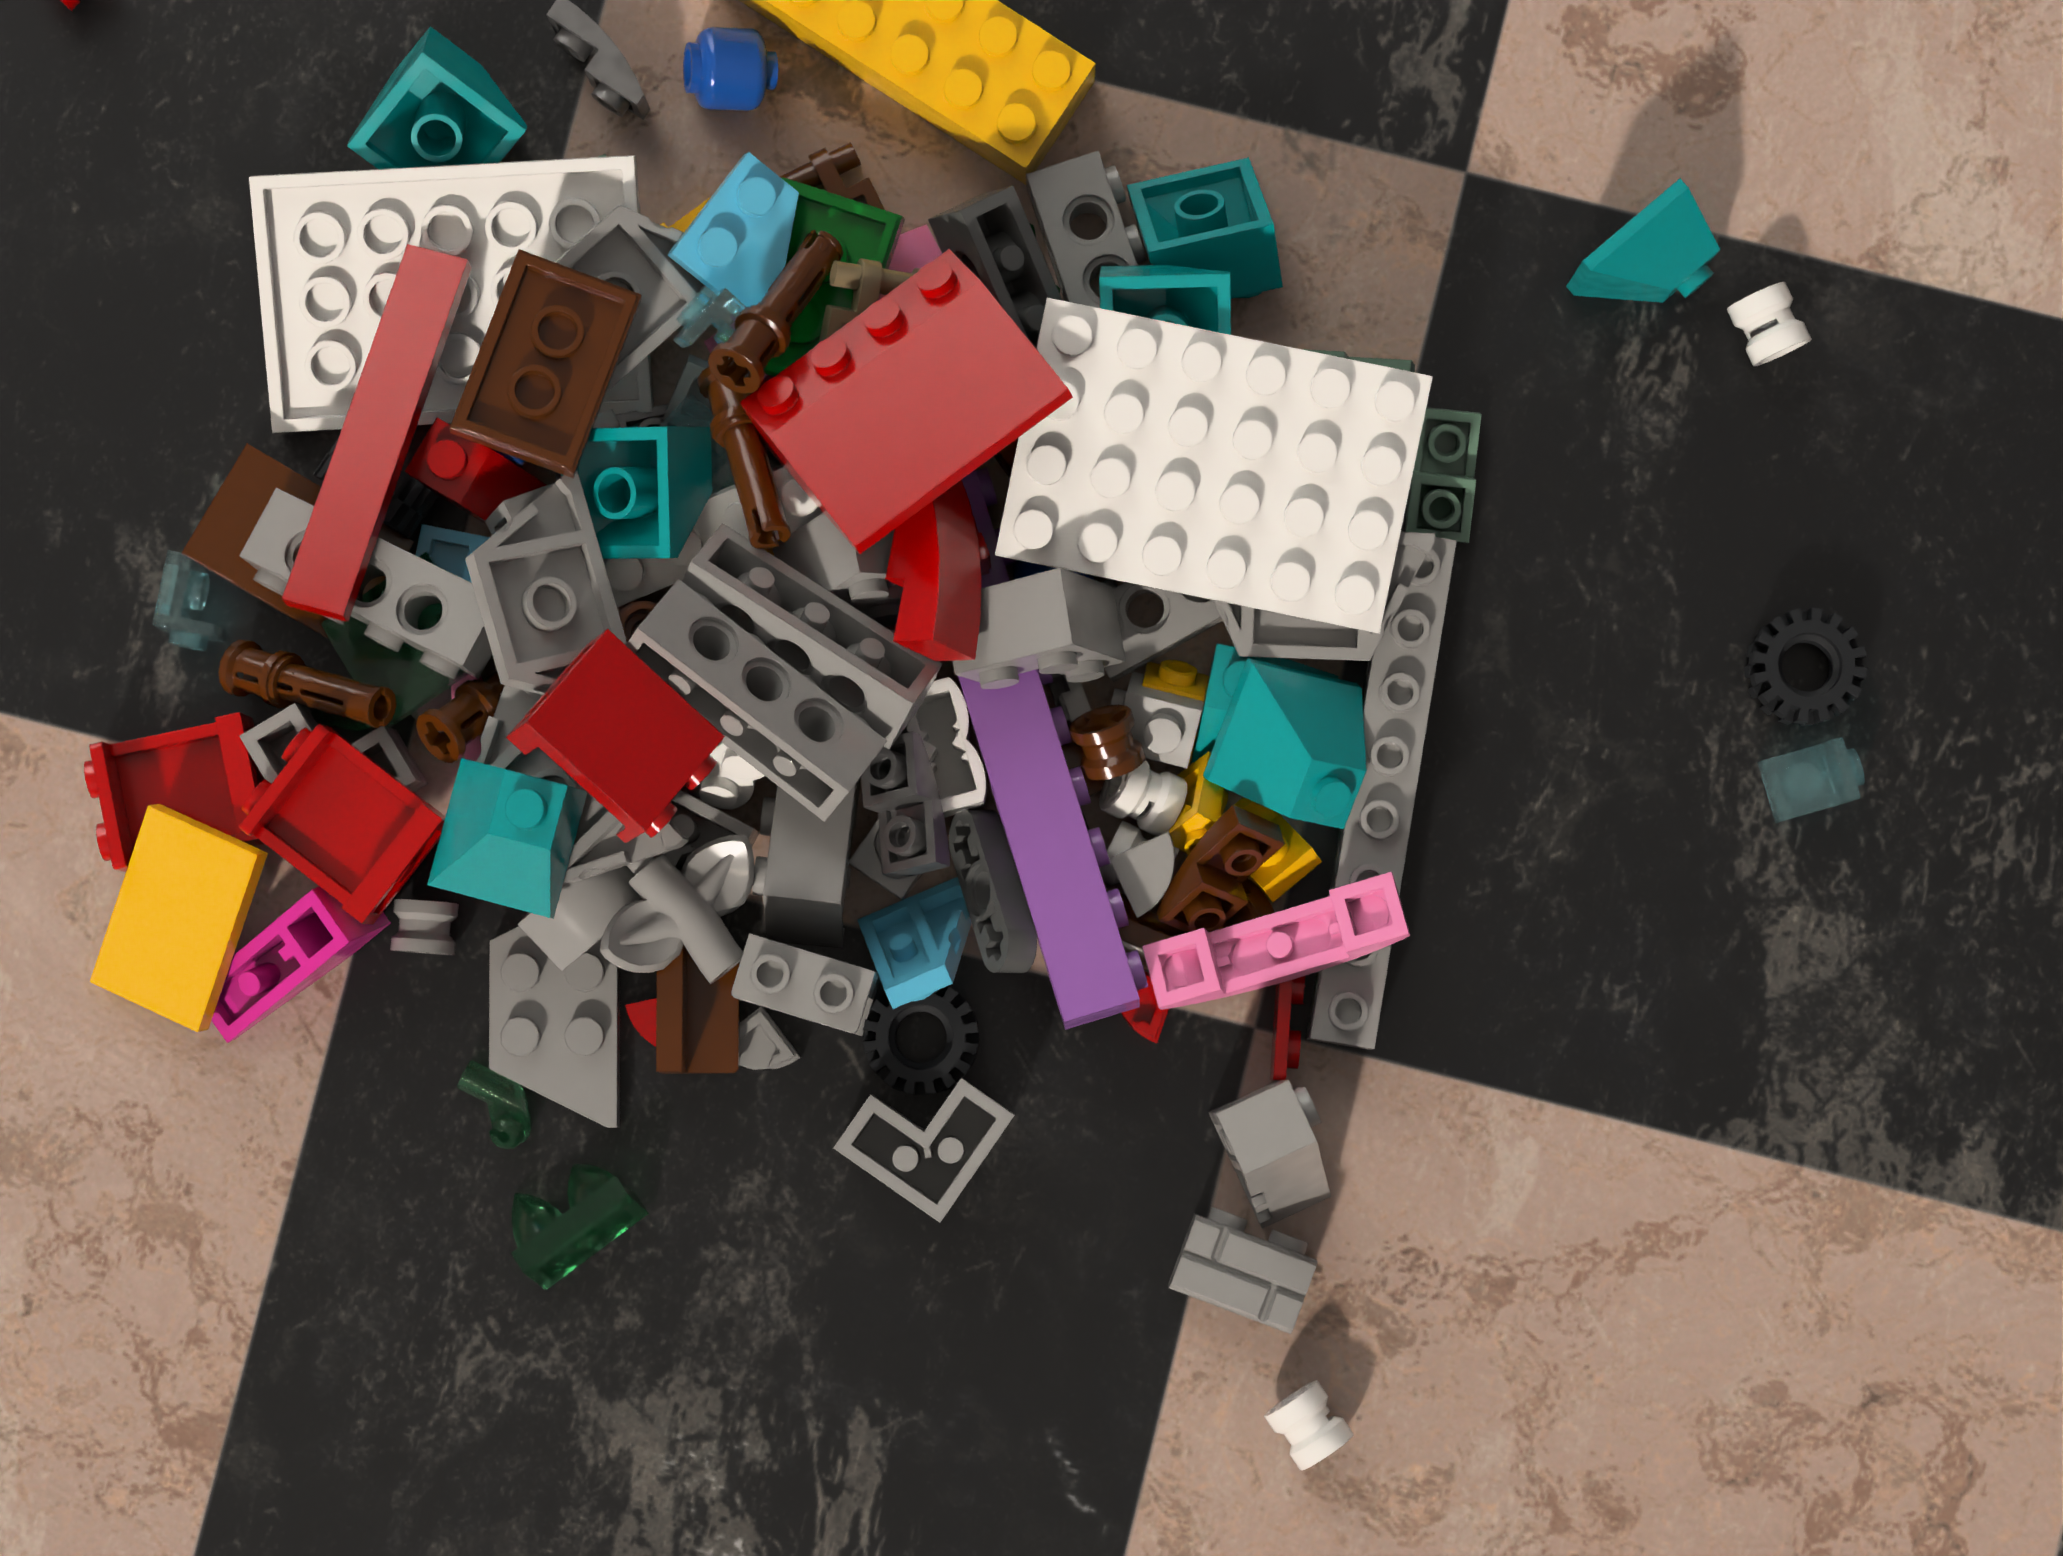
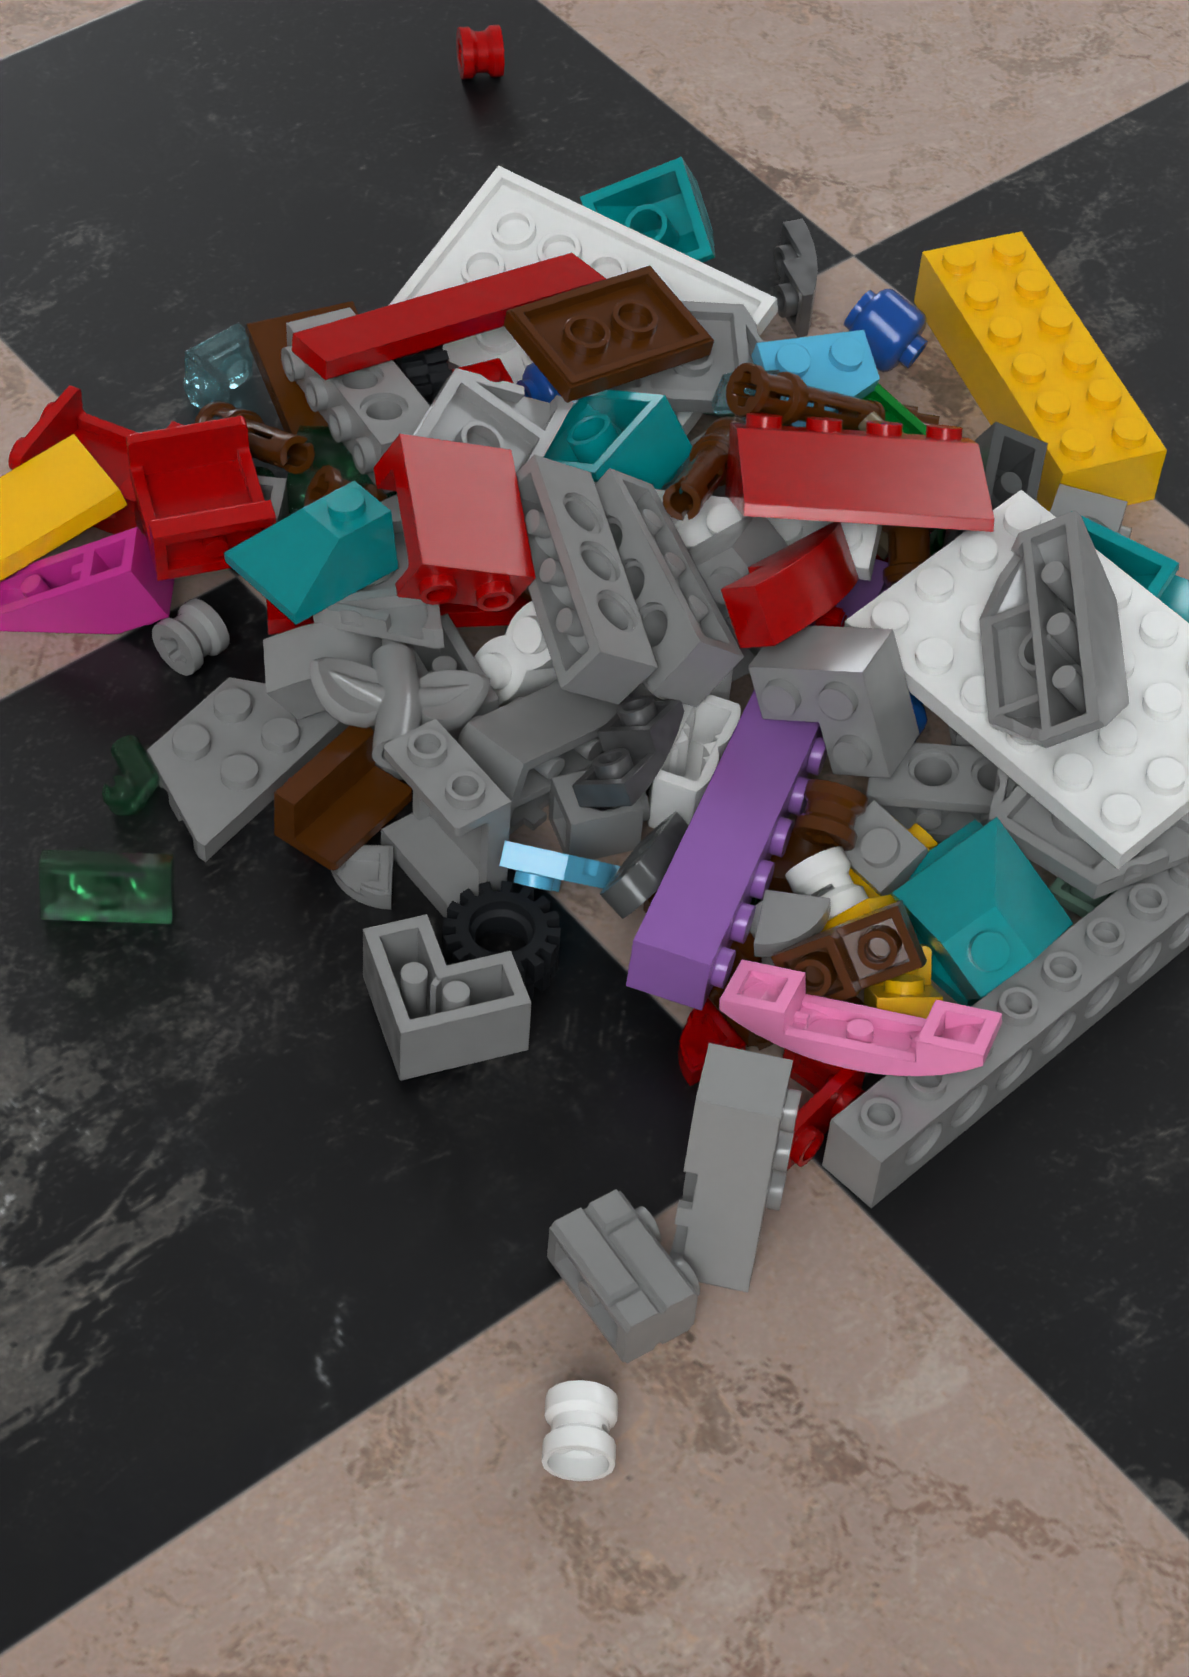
camera: 30 degrees right, 35 degrees down
(1212, 496) = (1053, 638): none -> light grey wedge

